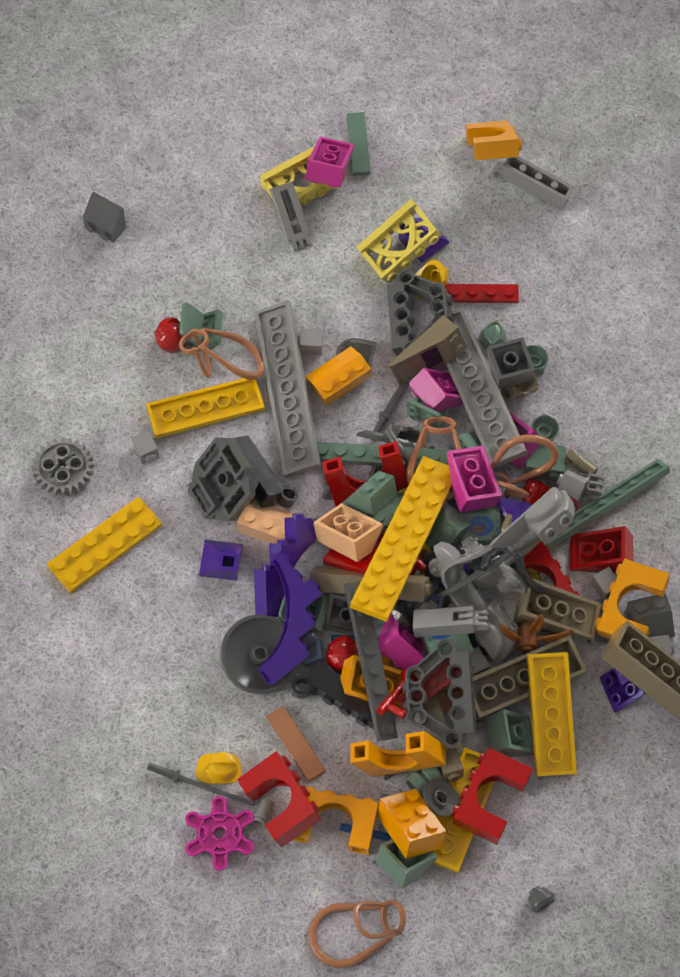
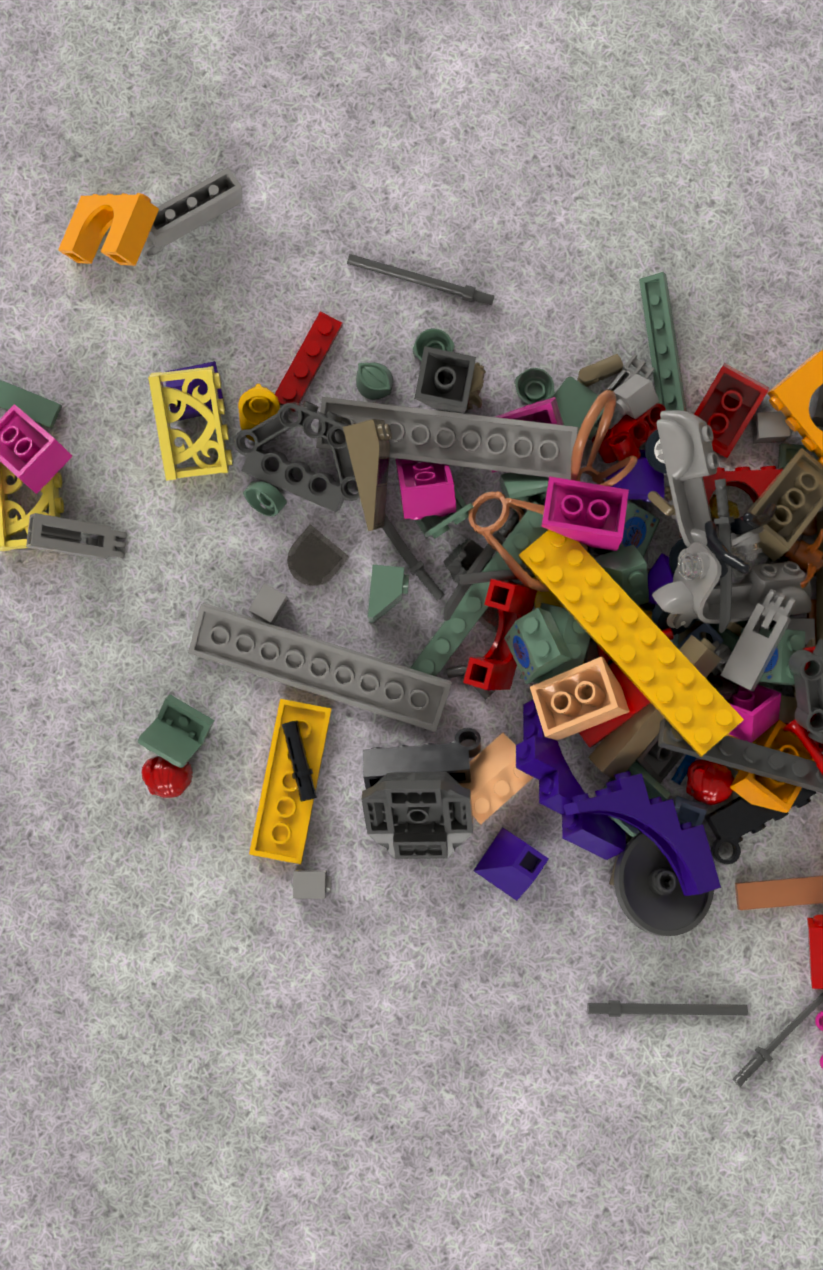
camera: 65 degrees left, 20 degrees up
(63, 466) = (260, 1008): light grey gear -> none
(104, 544) = (416, 997): yellow plate -> none
(159, 668) = (615, 1008): none -> dark grey bar
(203, 347) = (225, 747): nougat animal -> none
(215, 405) = (297, 754): none -> black pin
(218, 768) = (774, 997): yellow piece -> none
(339, 375) = (334, 595): light orange slope -> none
(356, 399) = (386, 590): none -> sand green slope
(379, 305) = (268, 495): none -> sand green hat
(583, 362) = (467, 293): none -> dark grey bar

